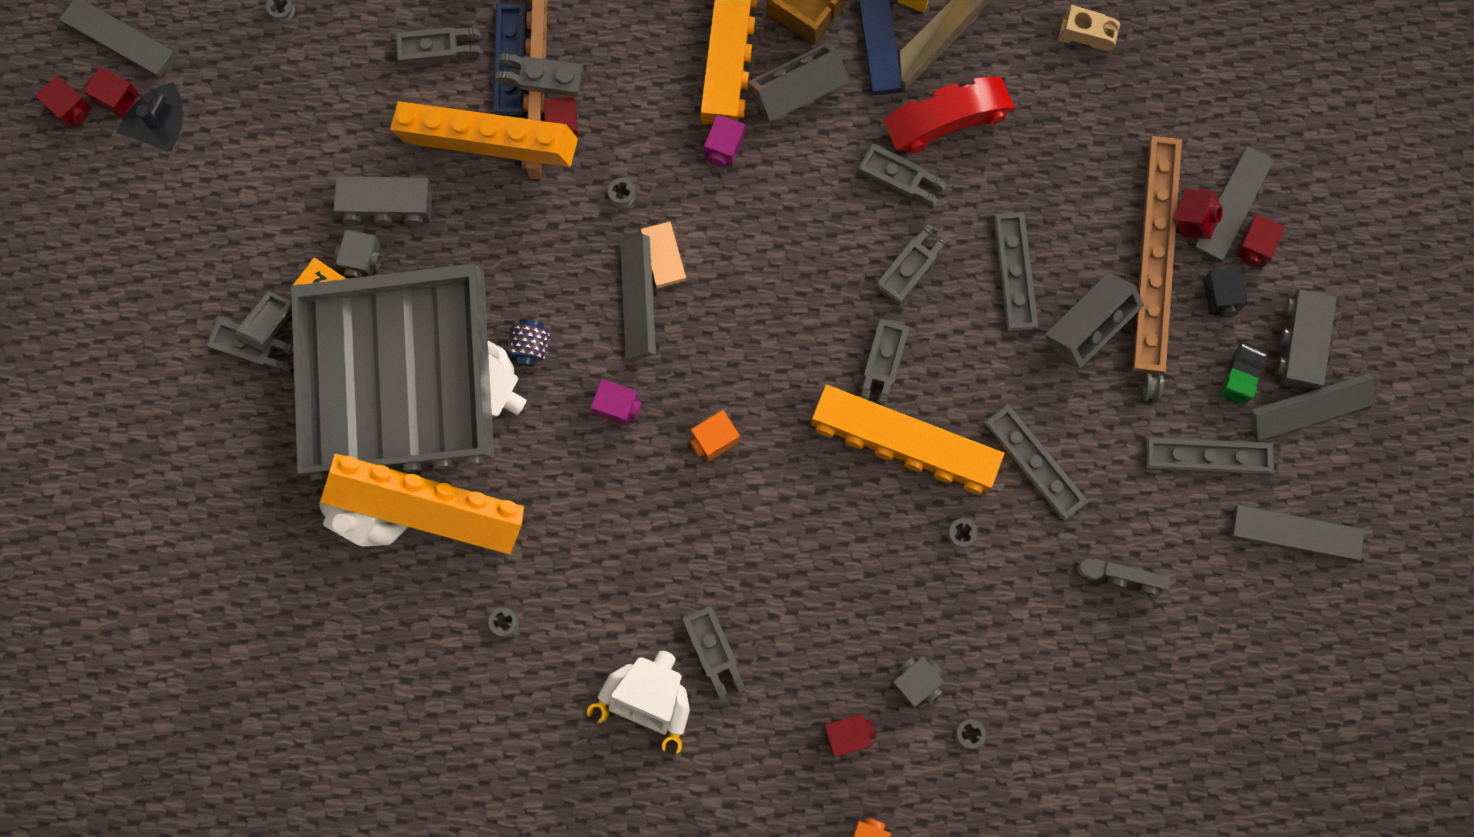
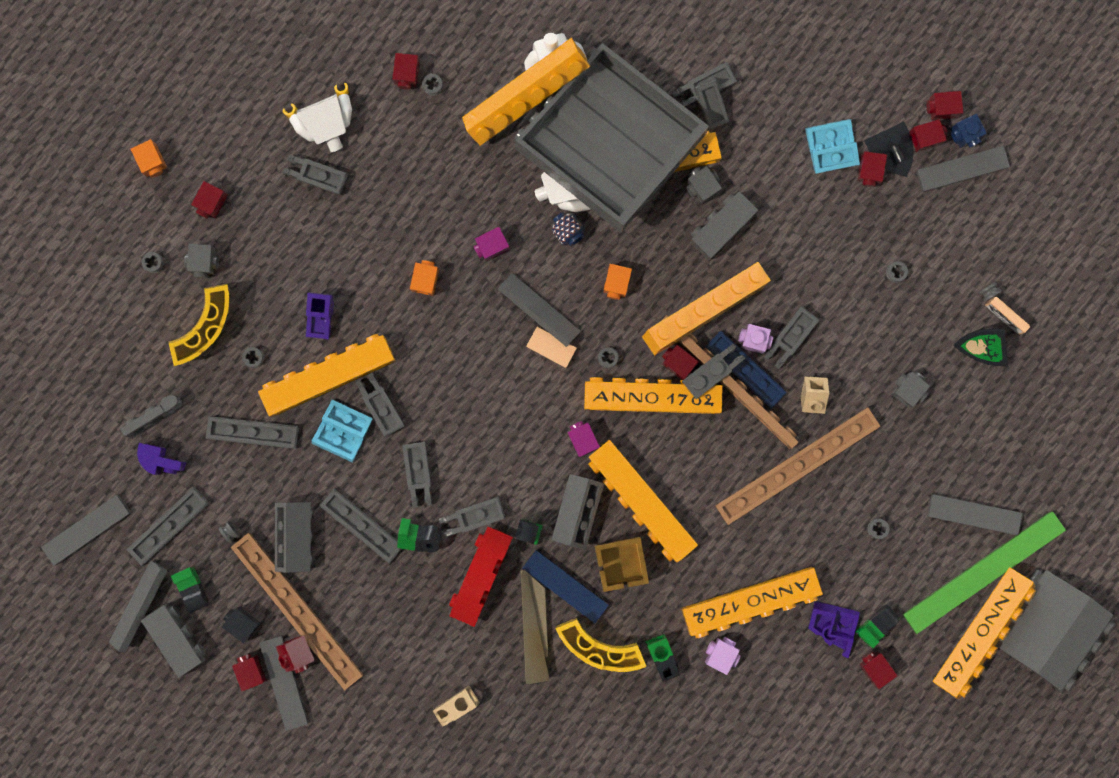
camera: 135 degrees right, 10 degrees up
(72, 58) = (968, 132): none -> dark blue brick
(194, 114) = (871, 168): none -> dark red brick
(204, 173) = (832, 146): none -> medium azure slope
(470, 71) = (755, 338): none -> lavender brick
(514, 661) = (405, 70): none -> dark red brick
(536, 249) = (617, 281): none -> orange brick
(626, 121) = (649, 397): none -> light orange brick
(855, 503) = (319, 315): none -> dark purple brick
(864, 109) = (528, 531): none -> black leg
(944, 376) = (342, 431): none -> medium azure slope
(971, 205) = (418, 537): none -> leg
(983, 604) = (206, 329): none -> yellow brick
(1161, 531) = (153, 459): none -> dark purple brick

